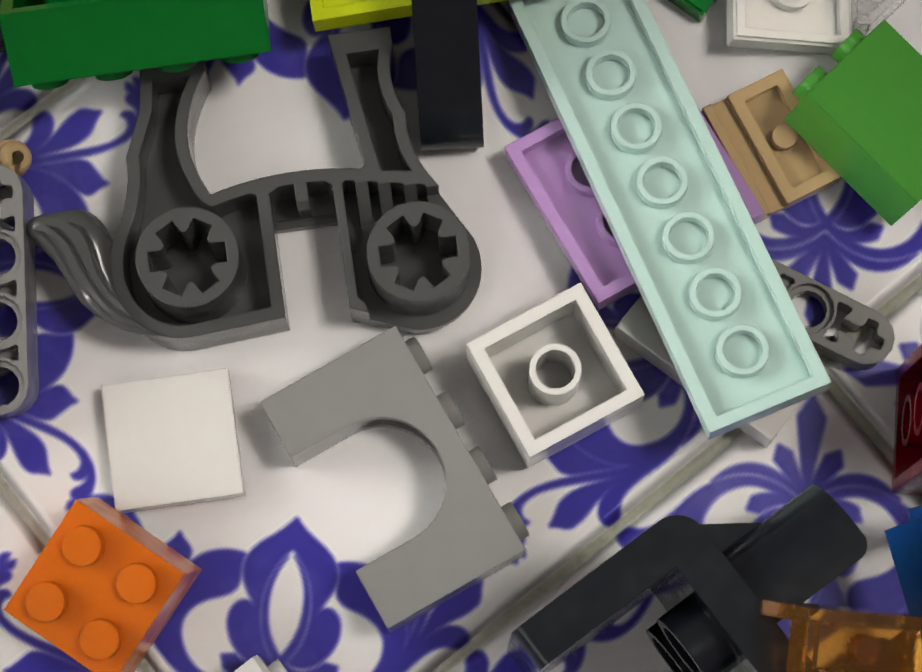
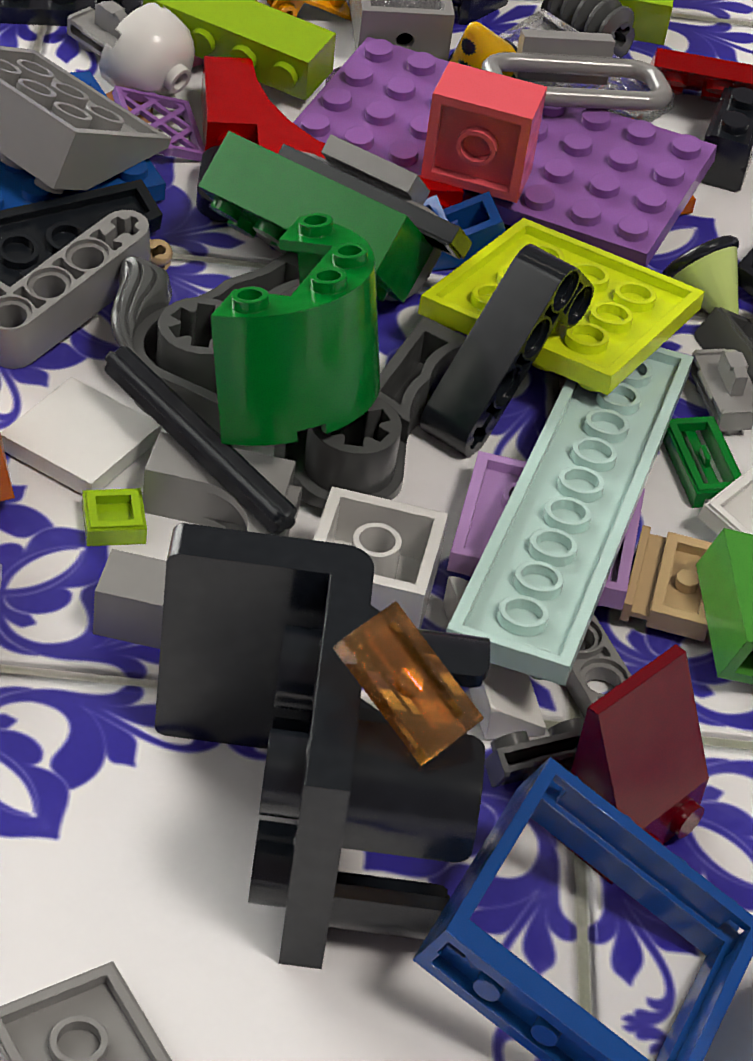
camera: 35 degrees right, 35 degrees down
(288, 501) = (114, 517): none -> lime tile
(307, 389) = (201, 441): none -> black axle
(355, 308) = (301, 355): none -> green cylinder
(842, 439) = (517, 757): none -> dark grey piece

